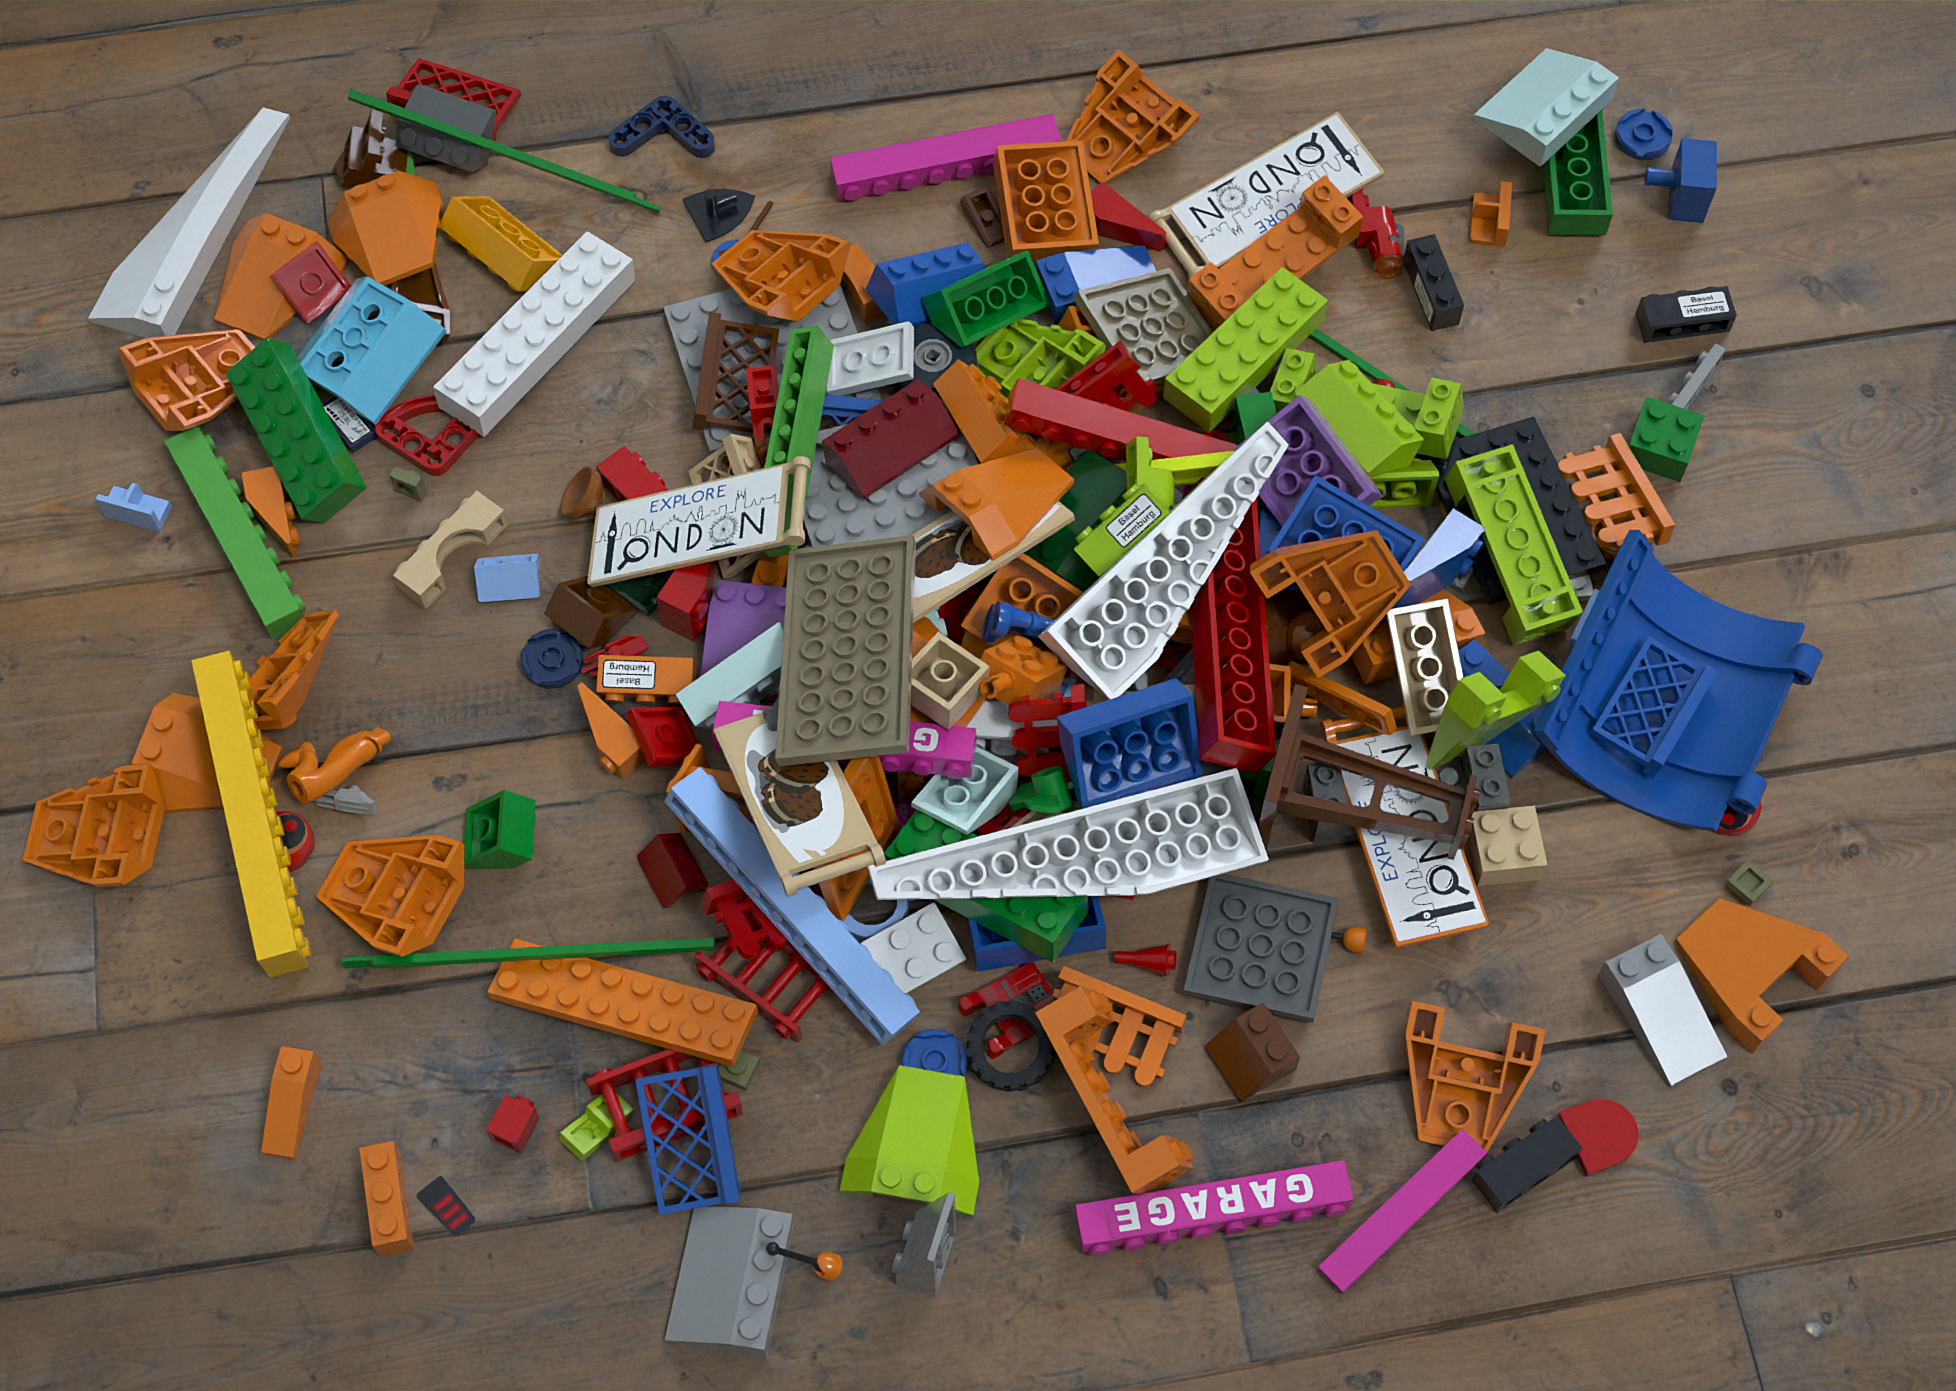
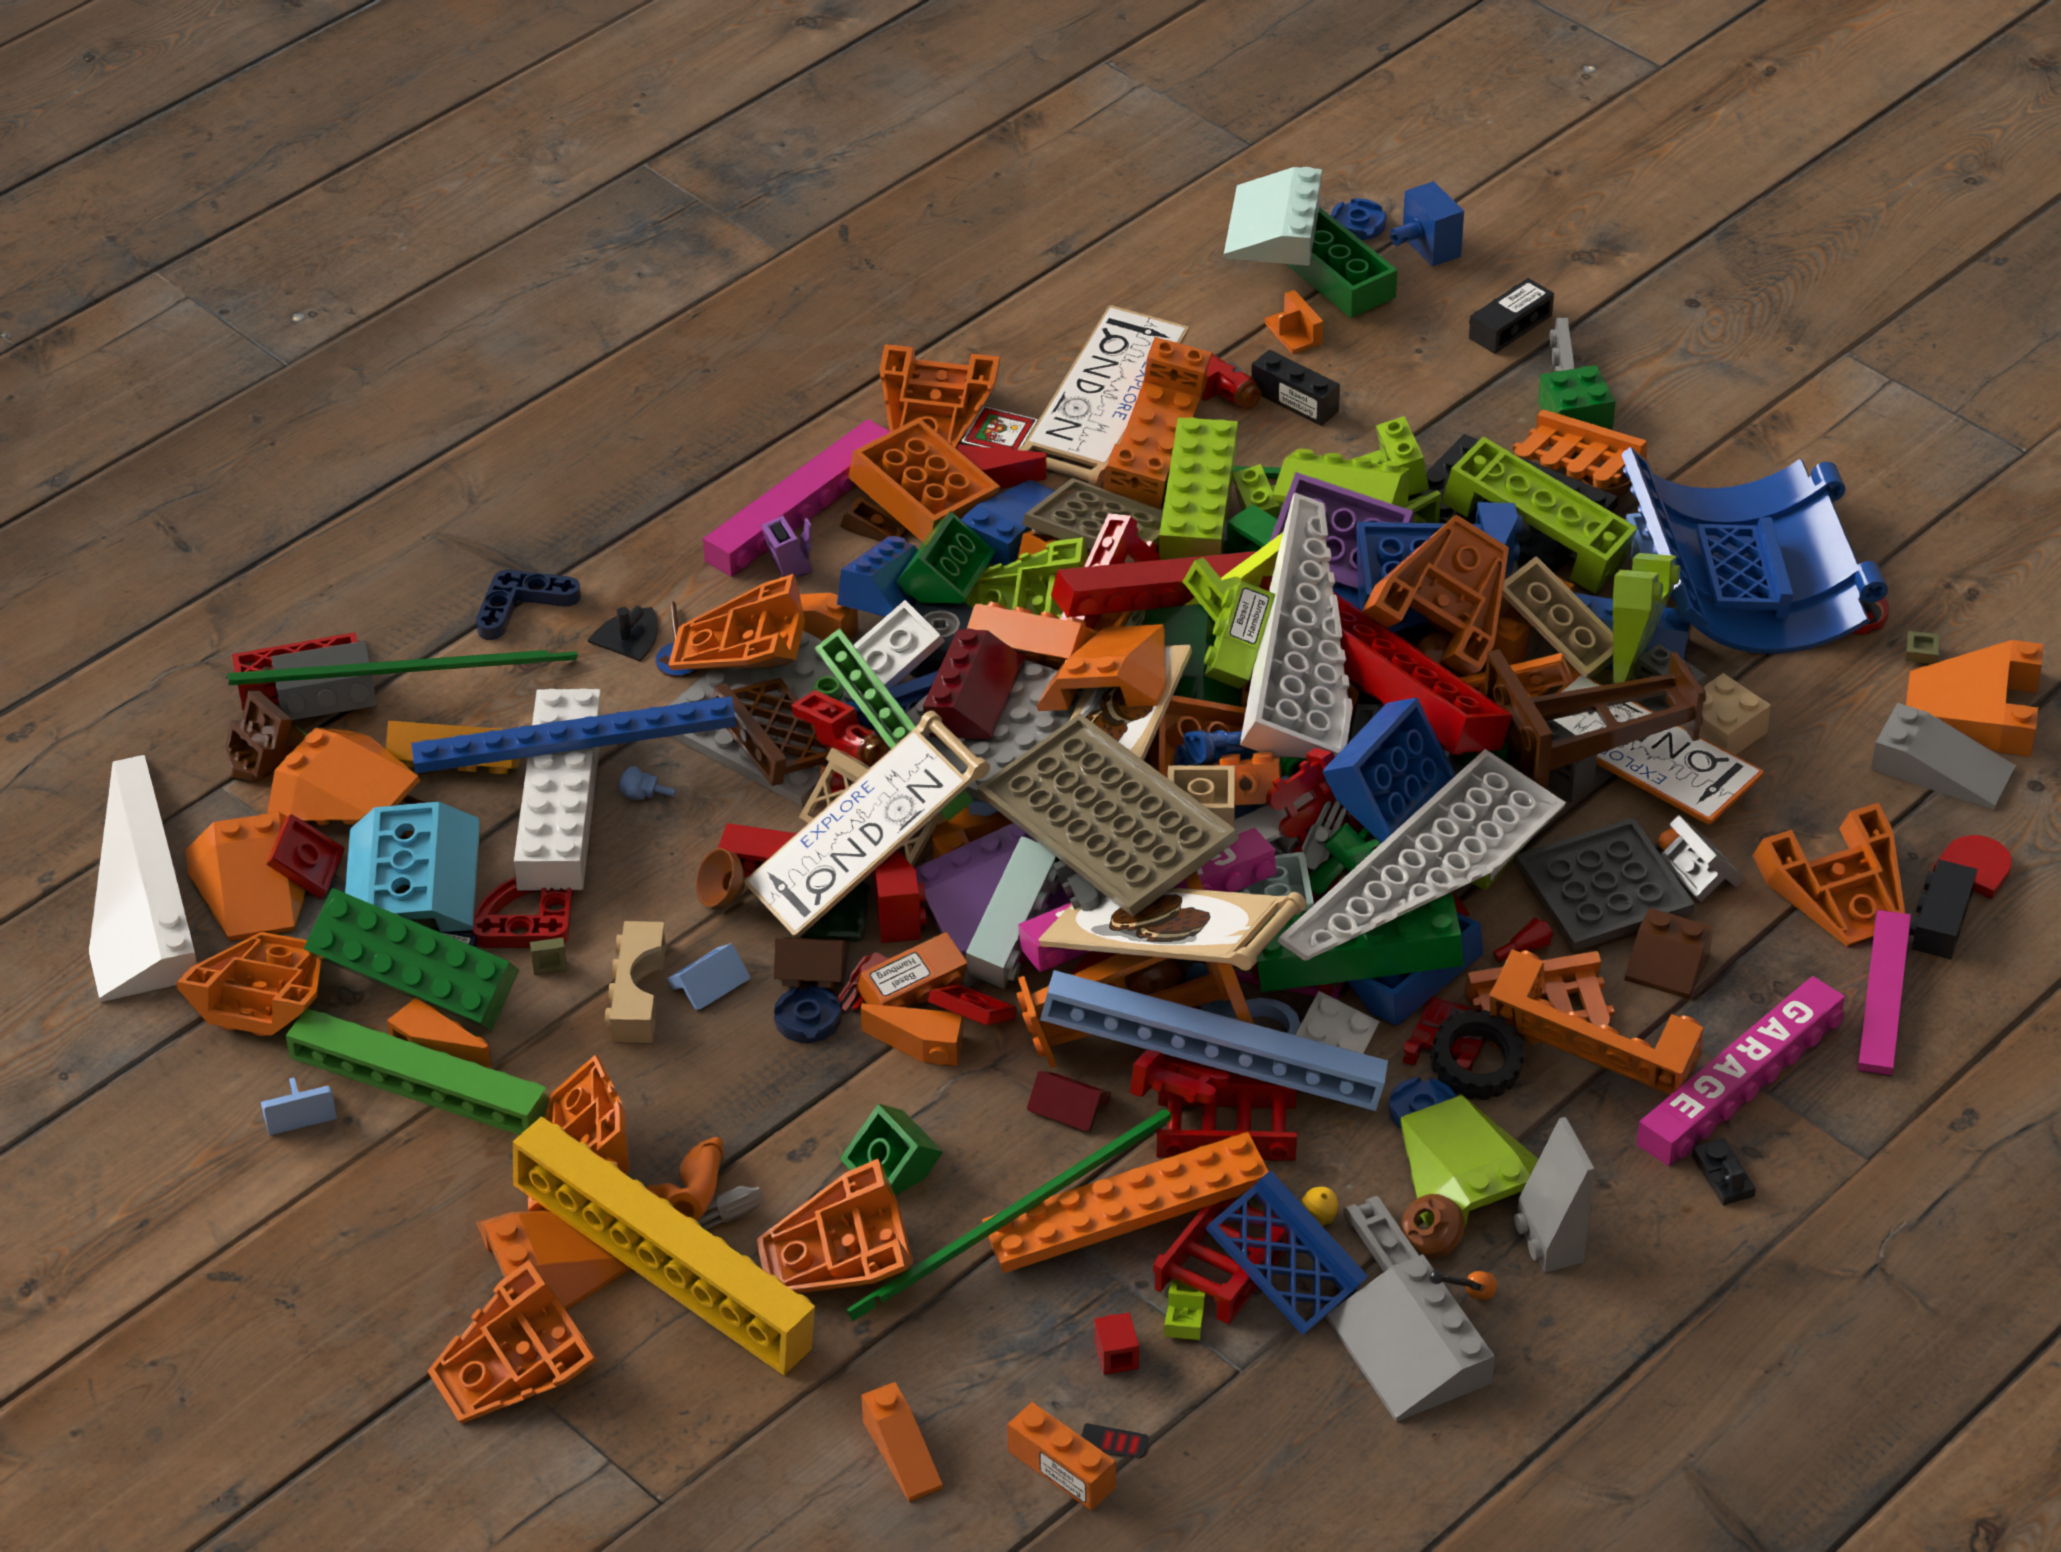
camera: 35 degrees left, 20 degrees down
(569, 296) = (573, 734): none -> blue plate
(603, 364) = (638, 785): none -> medium blue piece
(763, 1110) = (1321, 1204): none -> yellow piece
(793, 1167) = (1380, 1233): none -> light grey plate
(845, 1185) = (1445, 1231): none -> dark orange piece
(887, 204) = (785, 548): none -> medium lavender piece
(1039, 761) = (1318, 835): none -> light grey piece
(1117, 1292) = (1723, 1171): none -> black hinge
(1156, 183) = (999, 429): none -> tile
(1359, 977) = (1698, 861): none -> light grey bracket

